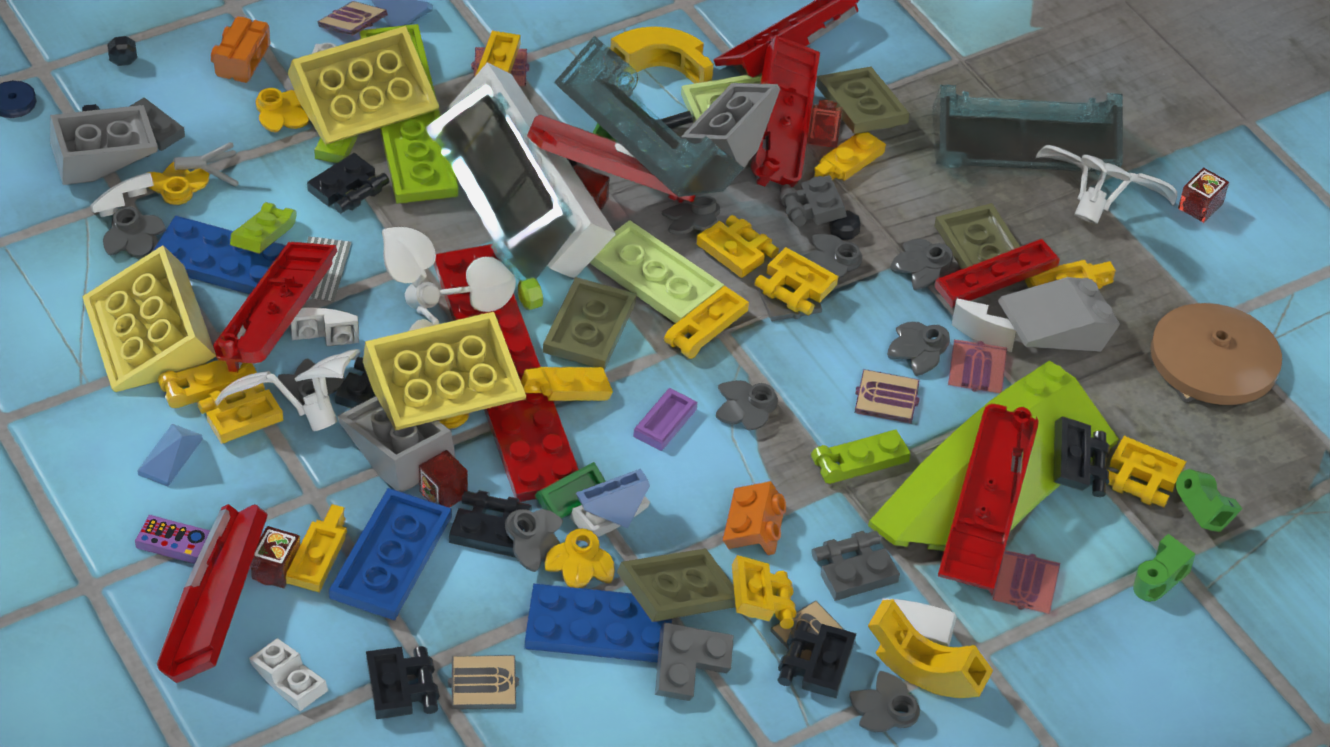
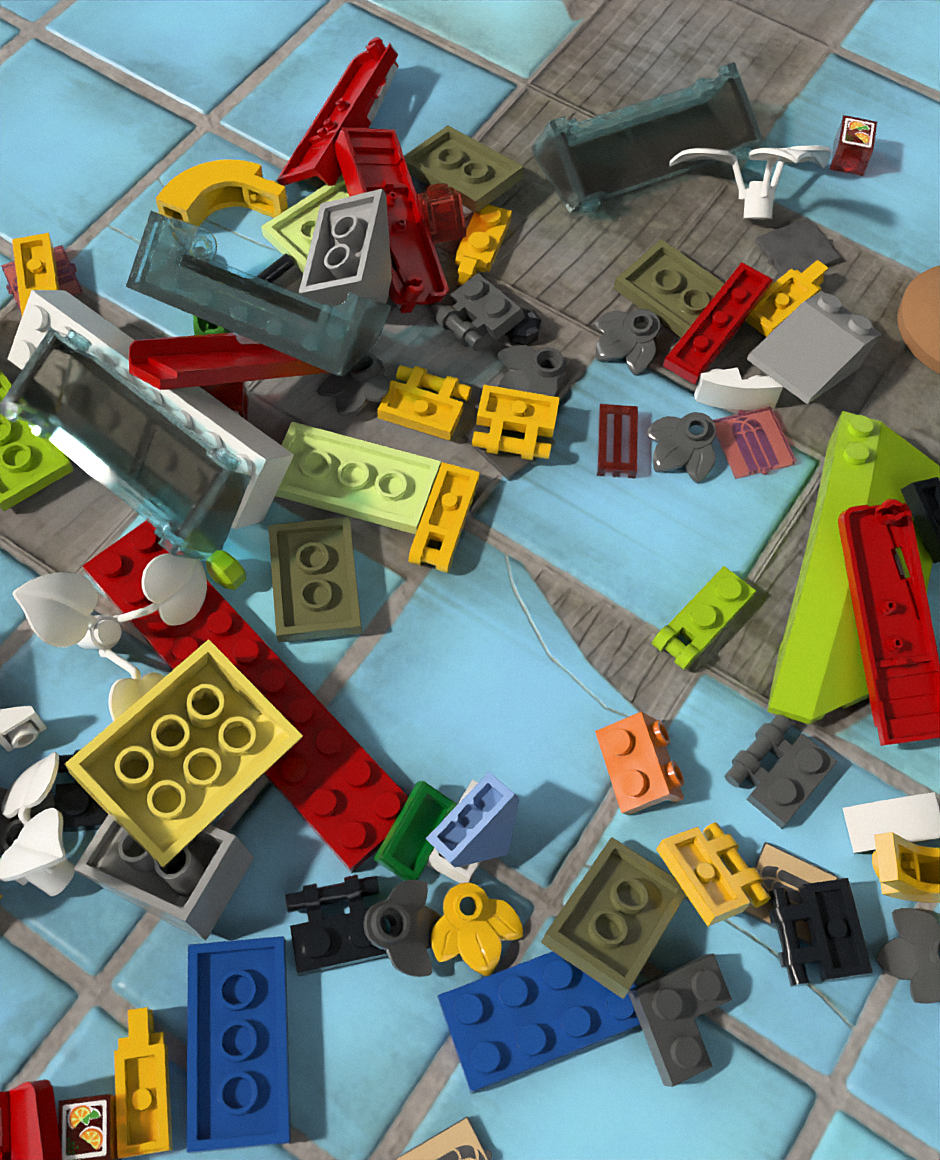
camera: 25 degrees left, 15 degrees up
(443, 479) = (253, 898): clear red brick -> none
(568, 383) = (333, 678): yellow hinge -> none
(665, 419) = (465, 669): medium lavender tile -> none
(746, 403) = (540, 611): dark grey plate -> none
(860, 341) = (616, 467): none -> clear red tile
(887, 396) = (684, 523): piece -> none
(1106, 247) = (796, 247): none -> flat silver piece

